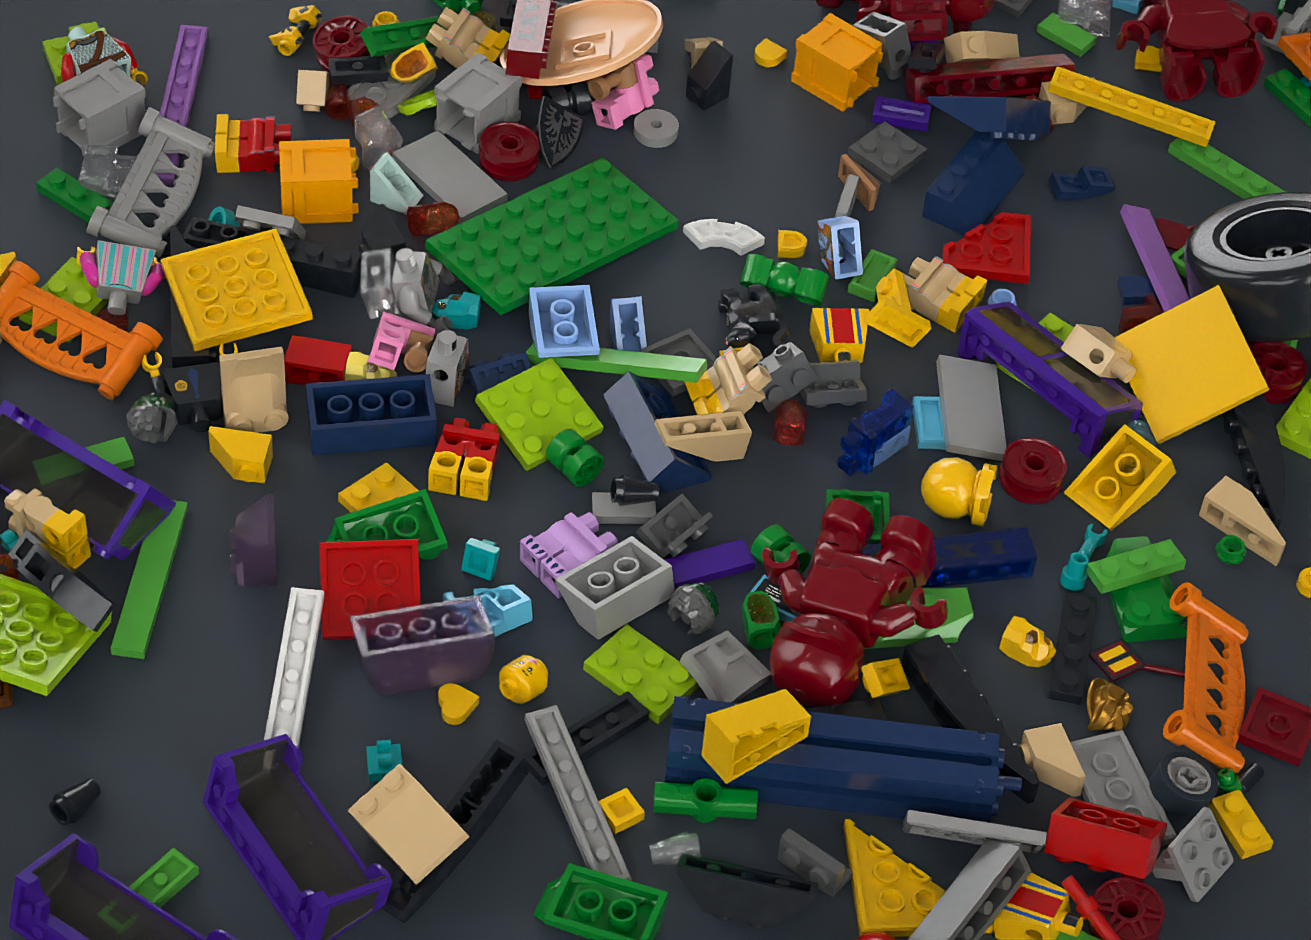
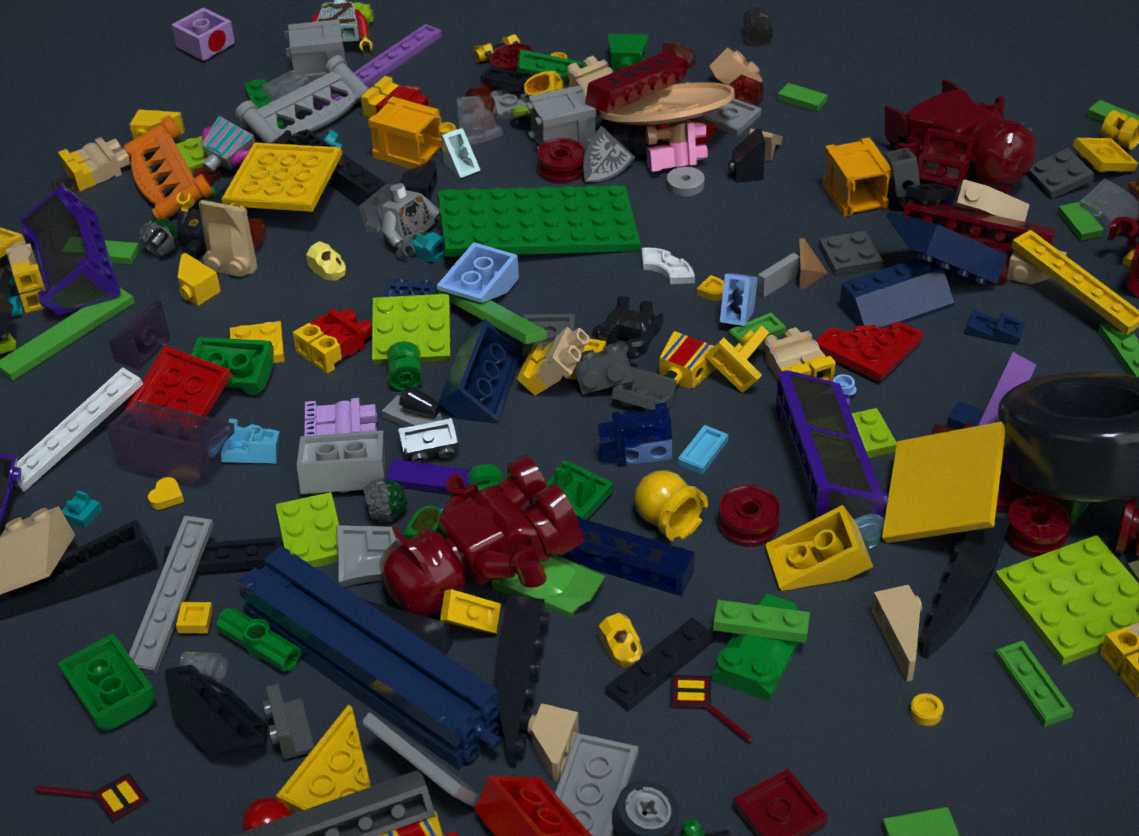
camera: 40 degrees right, 5 degrees down
(264, 221) = (351, 149): light grey plate -> none
(312, 89) = (462, 80): tan slope -> none
(315, 361) = (294, 241): red brick -> none
(371, 414) = (294, 284): dark blue brick -> none
(402, 336) = (356, 246): bright pink hips -> none
(431, 218) = (466, 180): rock -> none
(449, 175) = (508, 161): light grey tile -> none
(450, 355) = (372, 272): light grey torso -> none
(481, 558) = (276, 406): teal tile -> none
(524, 678) = (220, 496): yellow head -> none
(627, 324) = (530, 293): medium blue slope -> none
(707, 435) = (506, 386): tan slope -> none
(753, 733) = (293, 592): yellow wedge -> none
(769, 53) = (816, 160): yellow tile -> none
(785, 279) = (678, 307): green piece -> none
(790, 423) = (589, 406): clear red rock -> none
(901, 113) = (881, 230): dark purple piece -> none
(971, 408) = (742, 449): light grey tile -> none
(1074, 574) = (708, 605): teal brick -> none
(1099, 352) = (873, 443): tan torso -> none
(1108, 706) = (644, 721): pearl gold hat -> none
(1190, 725) = (687, 771): orange piece -> none
(1231, 549) = (870, 648): green plate -> none

